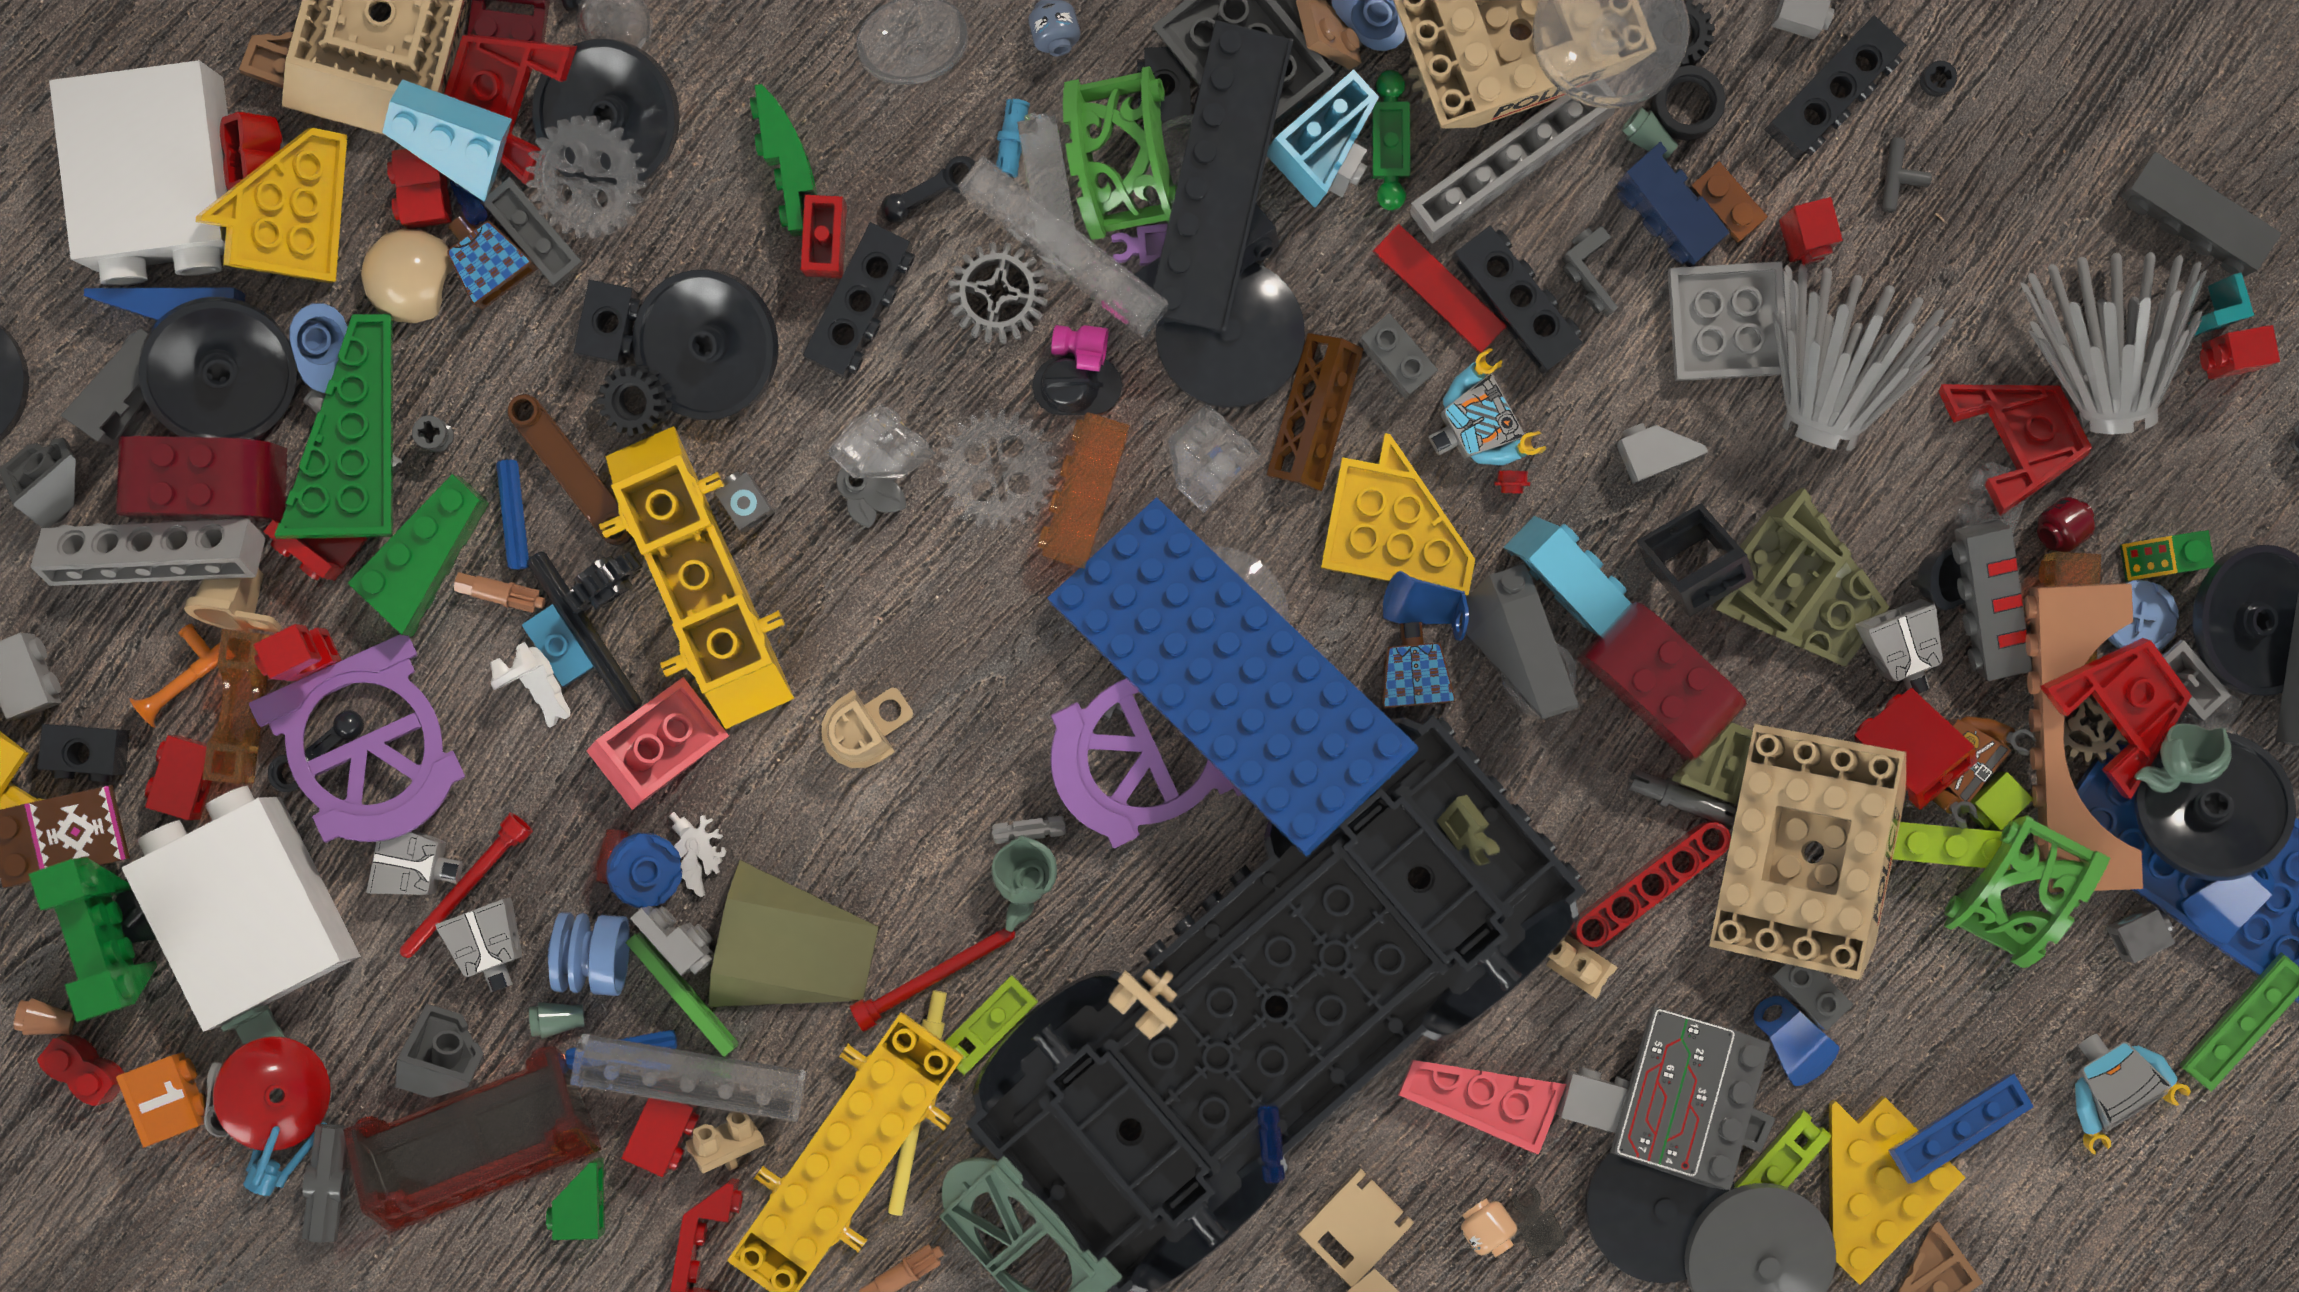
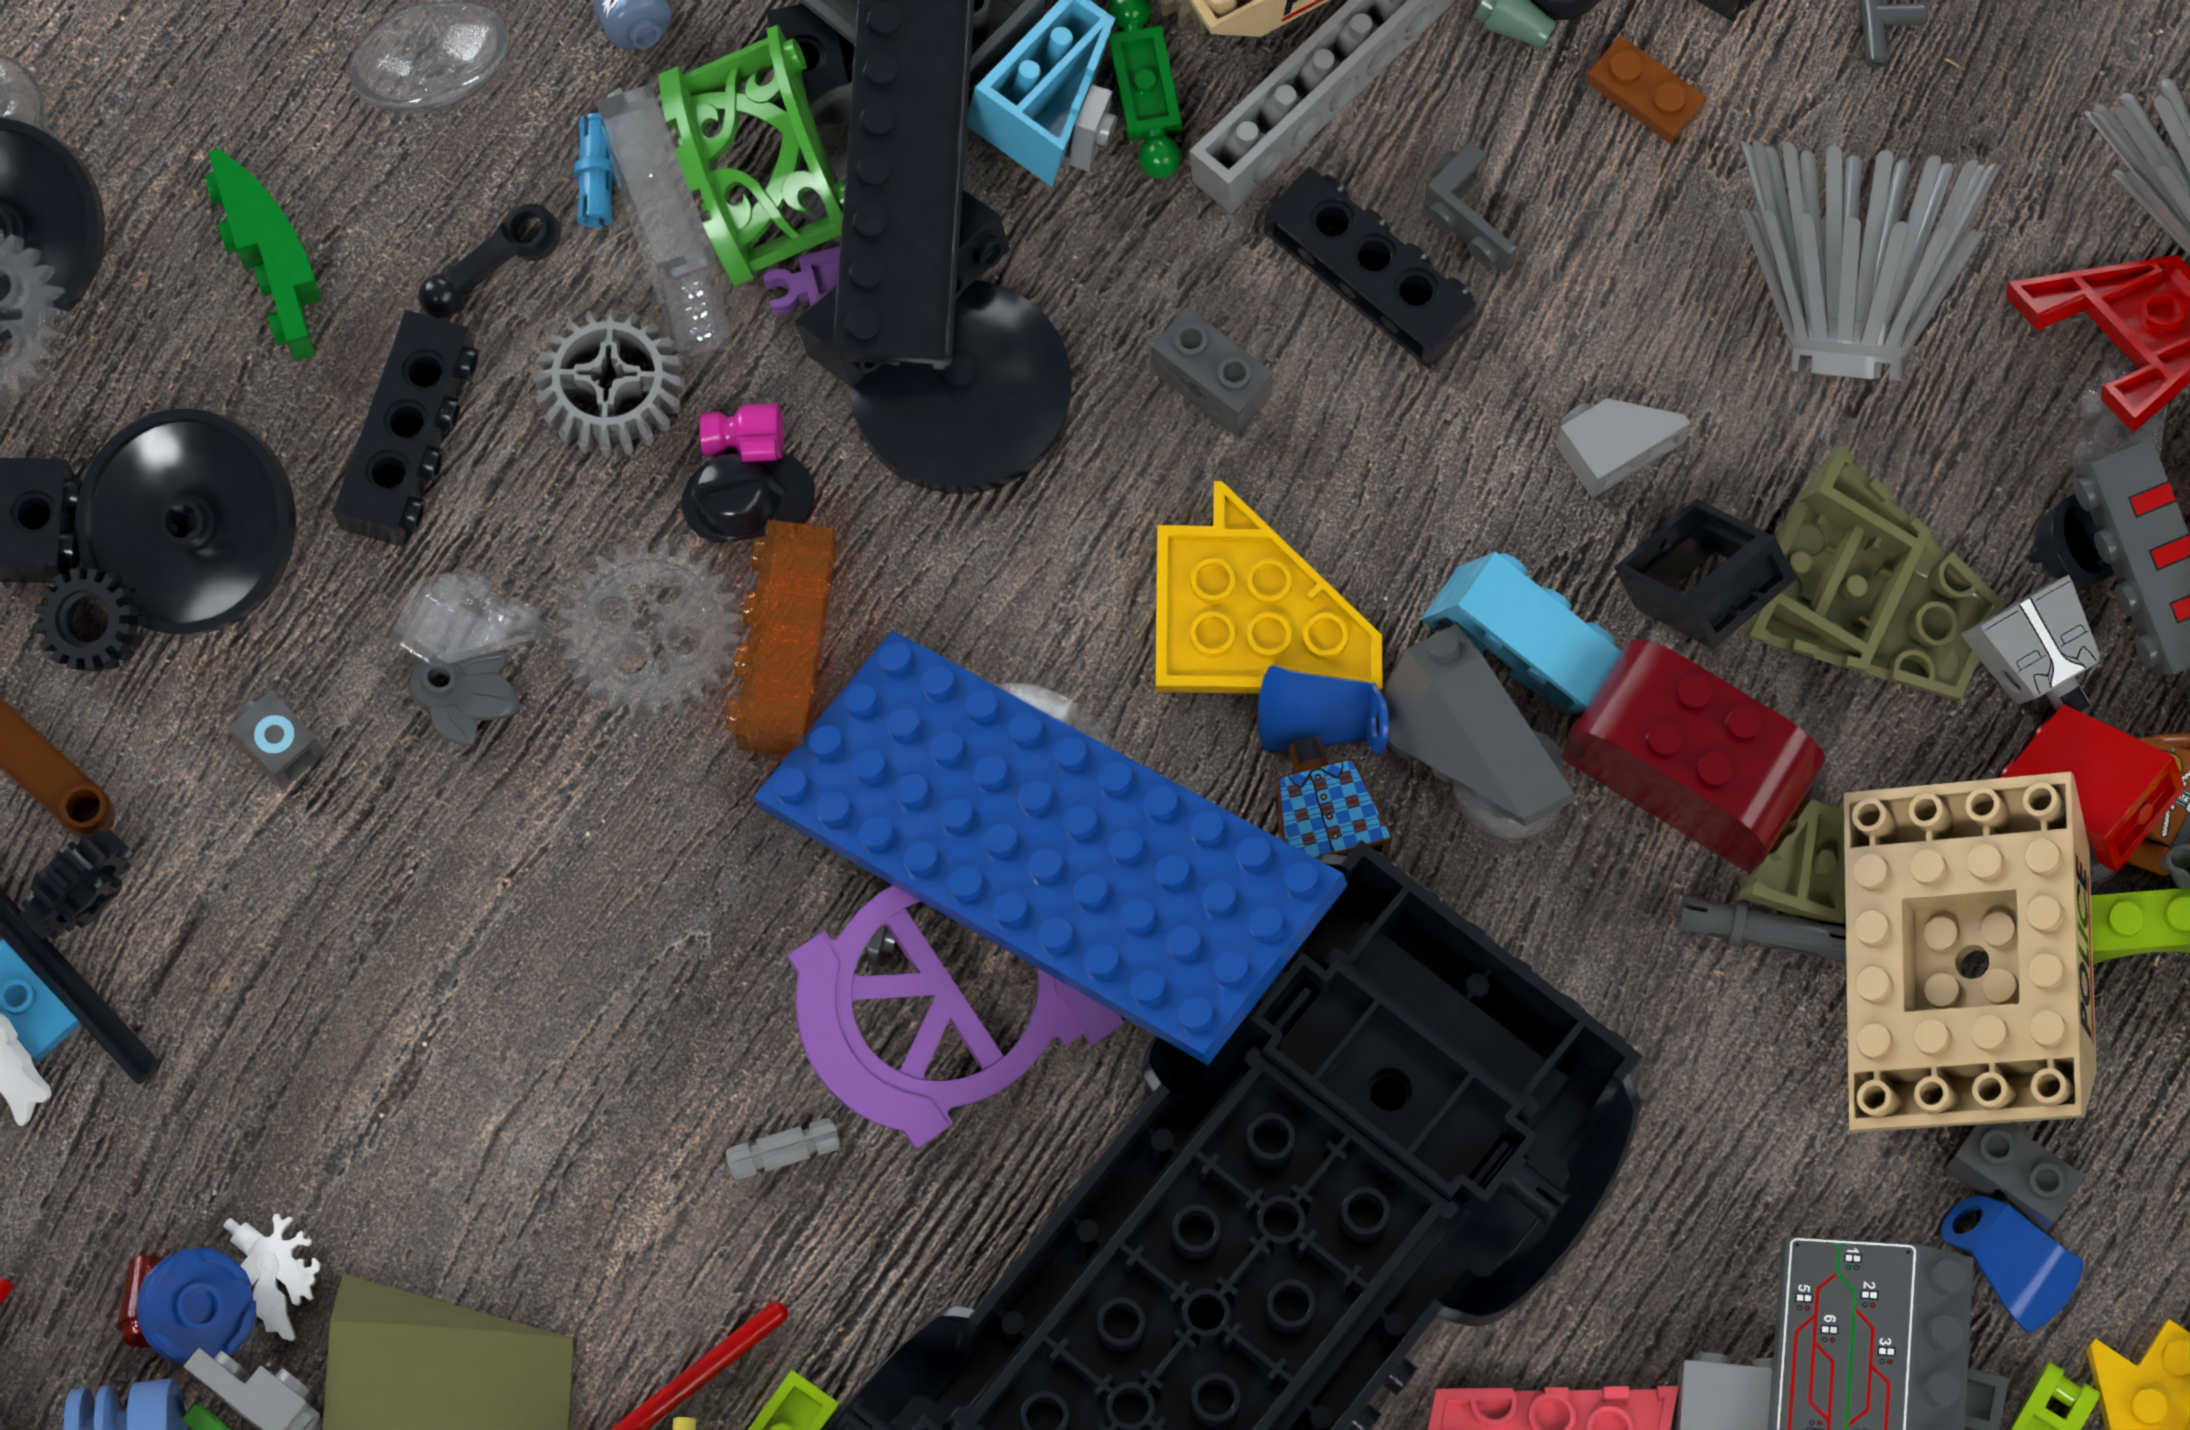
camera: 15 degrees left, 15 degrees down
(657, 743) = (188, 1117): coral slope -> none
(697, 578) = (258, 915): yellow piece -> none
(823, 236) = (340, 343): red brick -> none
(857, 732) = (496, 1051): tan container -> none
(1023, 875) = (783, 1211): sand green hair -> none
(1063, 247) = (692, 251): clear brick -> none
(1157, 1014) = (1024, 1347): tan hips -> none
(1209, 457) = (961, 559): clear slope -> none
(1322, 411) = (1116, 466): reddish brown fence -> none
(1439, 289) = (1254, 274): red tile -> none
(1465, 829) = (1441, 998): olive plate -> none
(1481, 419) = (1351, 438): torso -> none
(1512, 481) = (1414, 519): red plate -> none
(1581, 966) = (1661, 1197): tan hips -> none
(1668, 879) = (1751, 1035): red beam -> none
(1671, 207) = (1562, 103): dark blue wedge -> none
(1725, 320) = (1677, 247): light grey plate -> none
(1811, 231) = (1770, 96): red brick -> none

